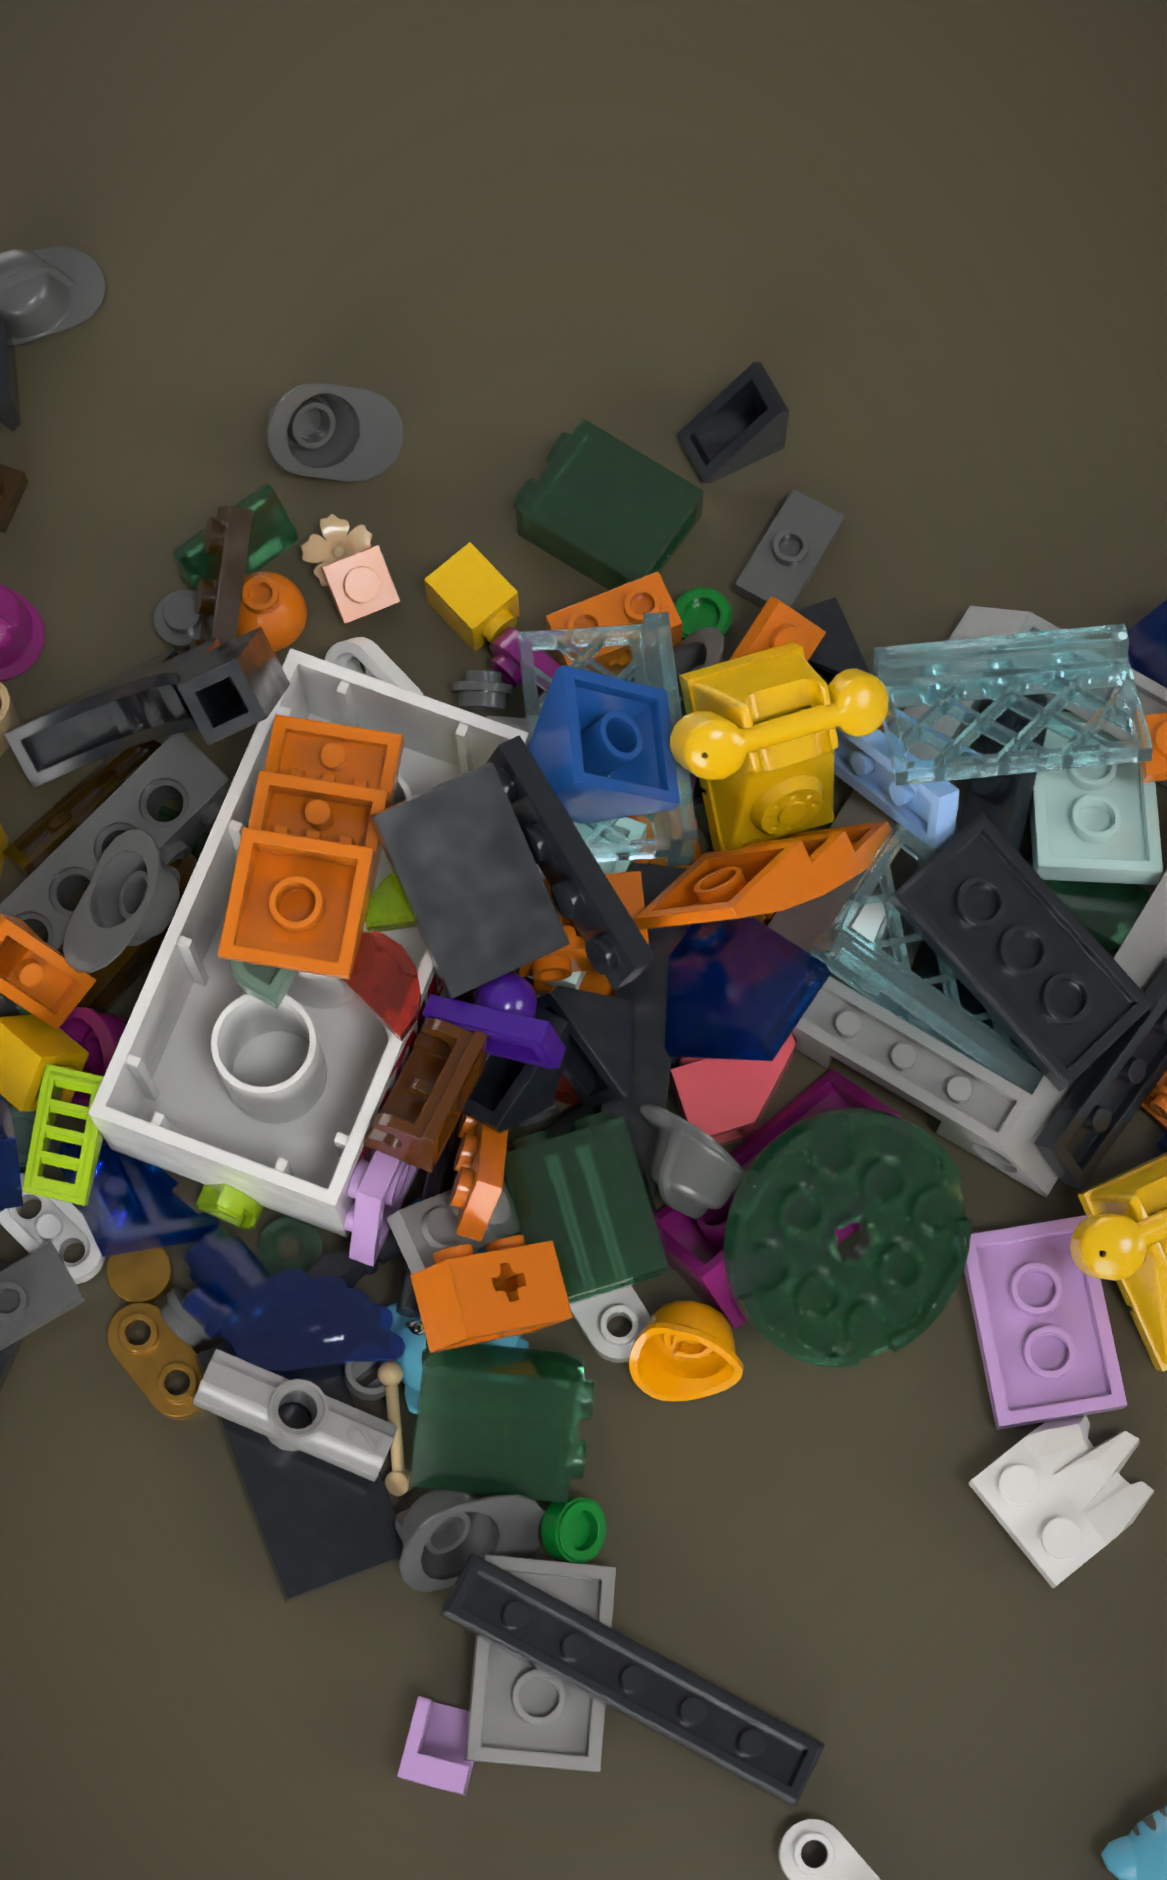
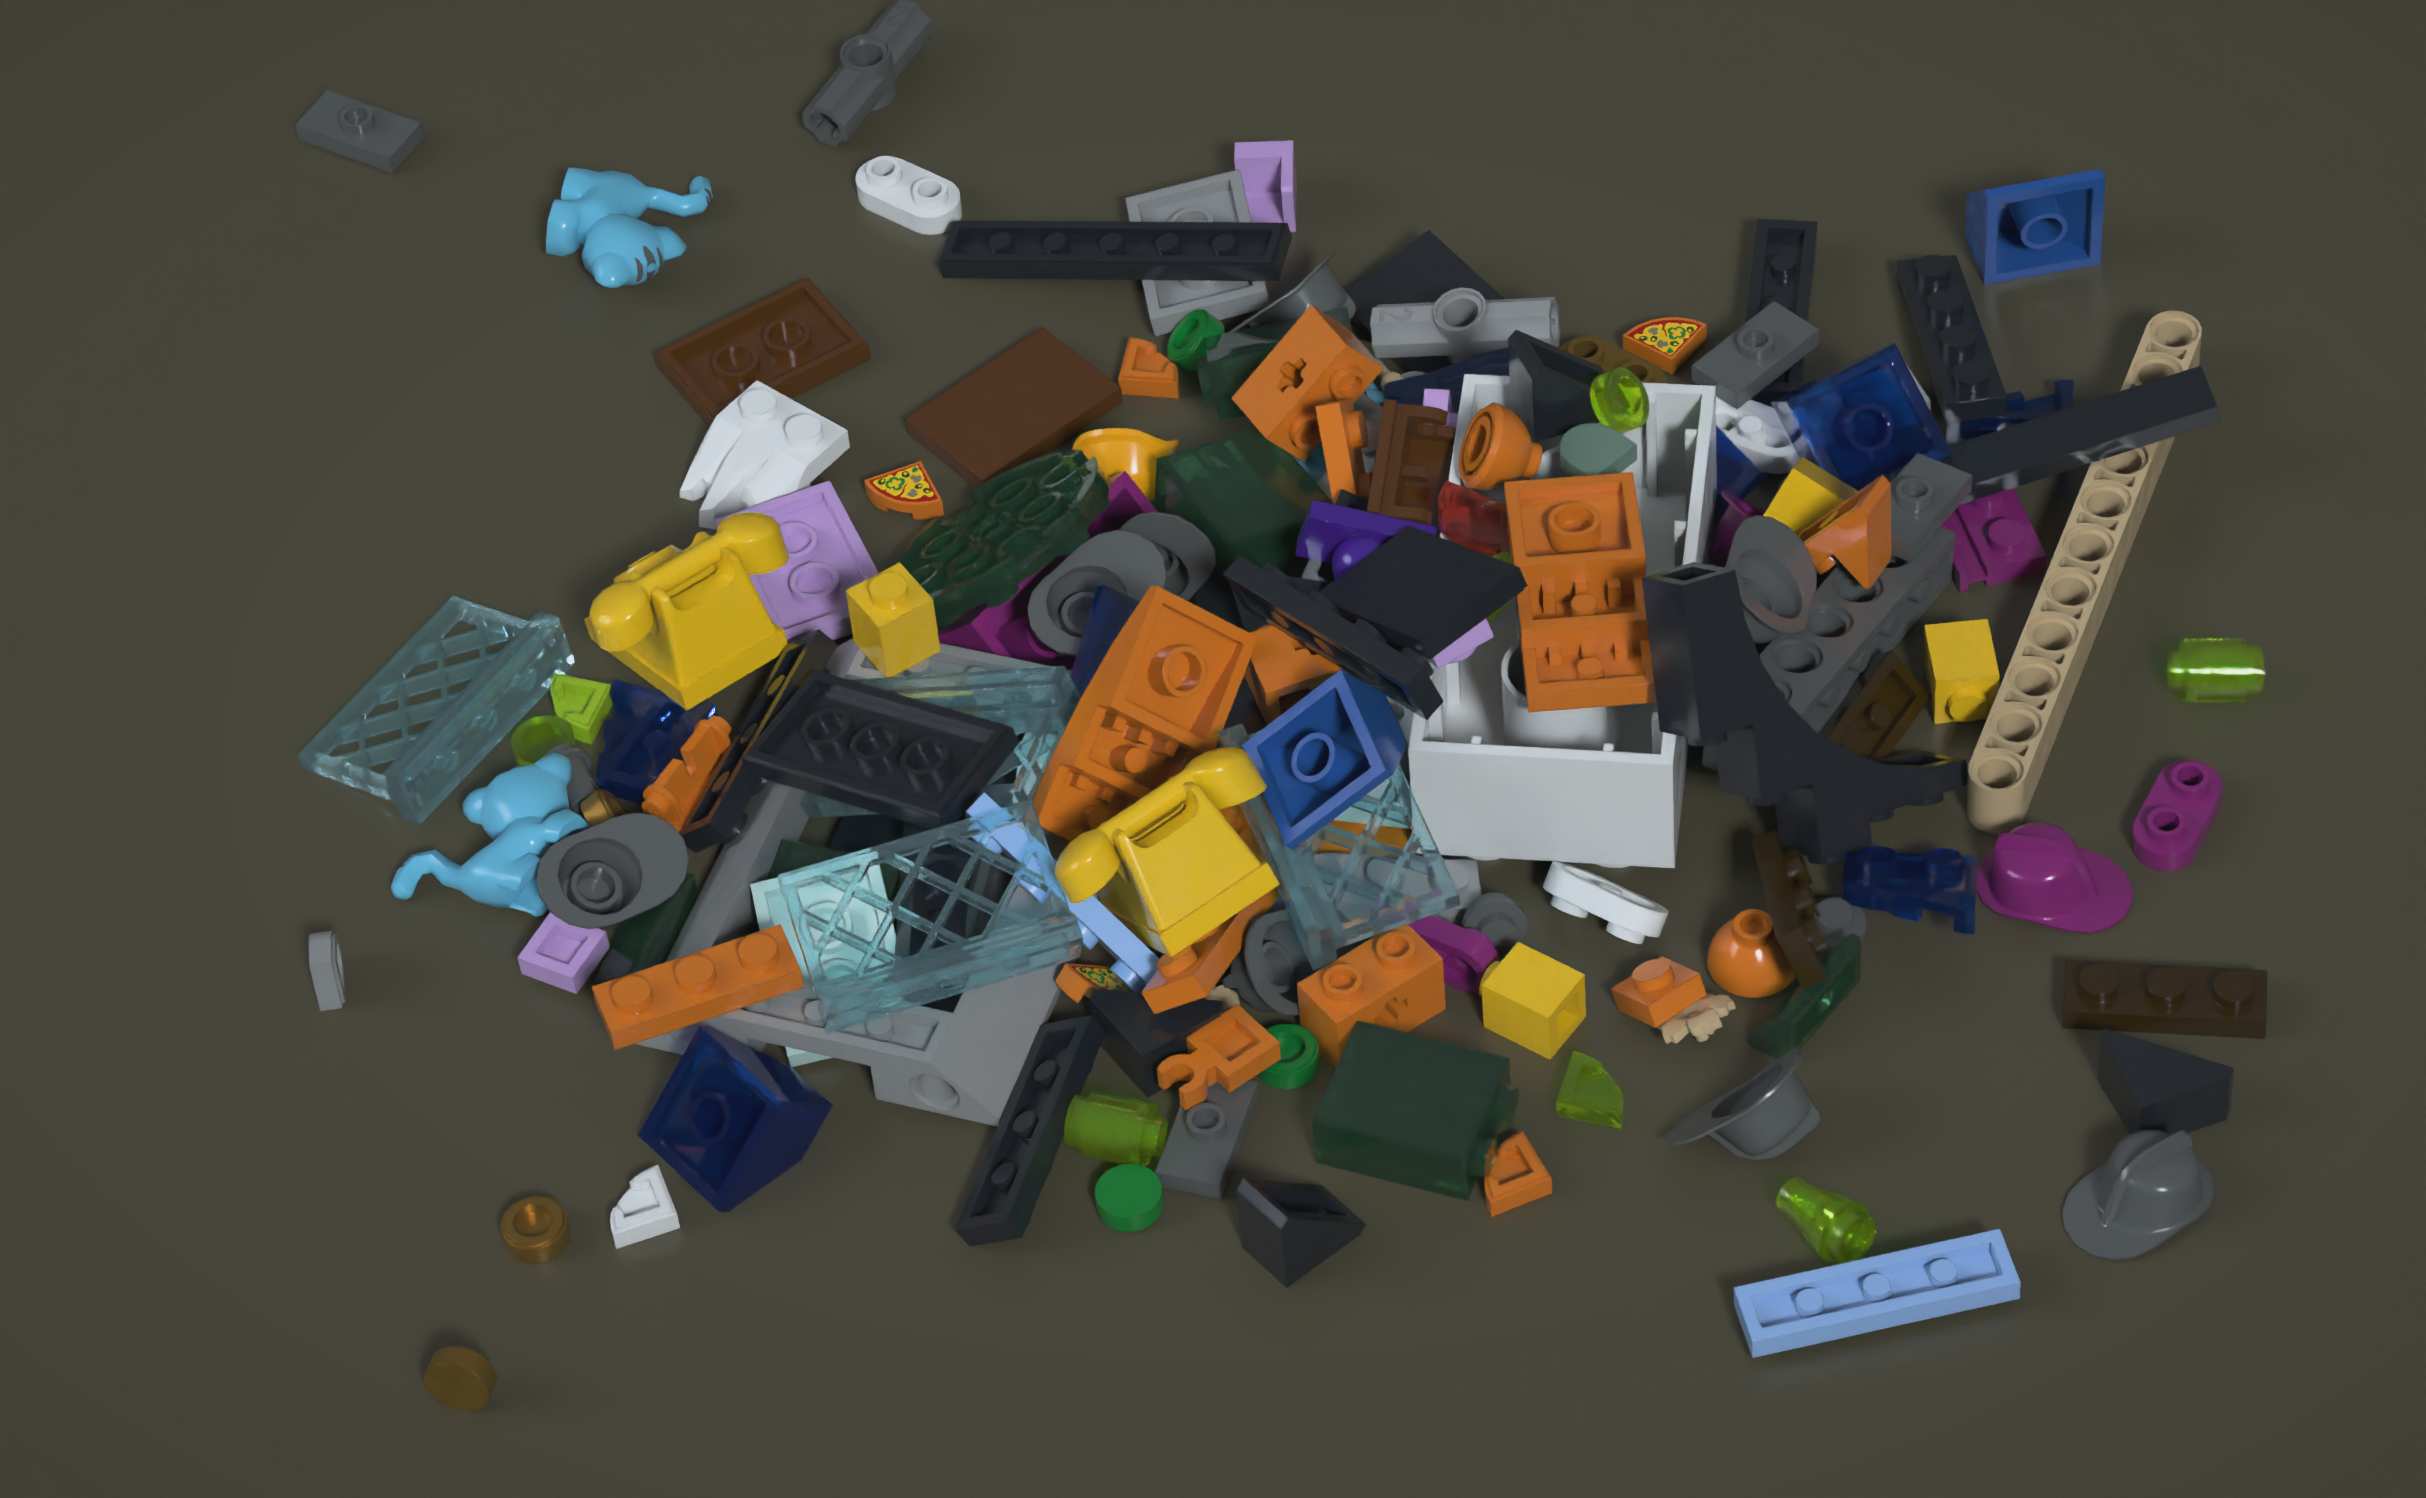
camera: 170 degrees right, 25 degrees down
(48, 1105) = (1748, 446): lime slope -> none
(88, 1393) = (1666, 341): none -> tile
(94, 623) = (1912, 882): none -> clear blue wing
(195, 1082) = (1619, 400): none -> clear neon green tile
(241, 1036) = (1595, 451): none -> sand green tile
(245, 1118) = (1549, 386): none -> black slope
(281, 246) = (1876, 1293): none -> light blue plate
(296, 320) = (1830, 1222): none -> clear neon green cone
(341, 1045) = (1497, 450): none -> orange brick
(450, 511) = (1590, 1093): none -> clear neon green tile
(533, 443) = (1515, 1176): none -> orange tile
(631, 1518) = (1147, 371): none -> orange tile
(745, 595) = (1222, 1052): none -> orange plate
(762, 1099) = (1065, 596): none -> dark grey piece
(784, 1499) = (1014, 408): none -> reddish brown tile
(870, 562) = (1115, 1128): none -> clear neon green brick
(871, 507) = (1129, 1197): none -> green tile
(918, 1410) = (905, 491): none -> tile
(952, 564) = (1030, 1131): none -> black plate
(980, 1105) = (893, 620): none -> yellow brick
(1038, 1668) = (781, 341): none -> reddish brown tile

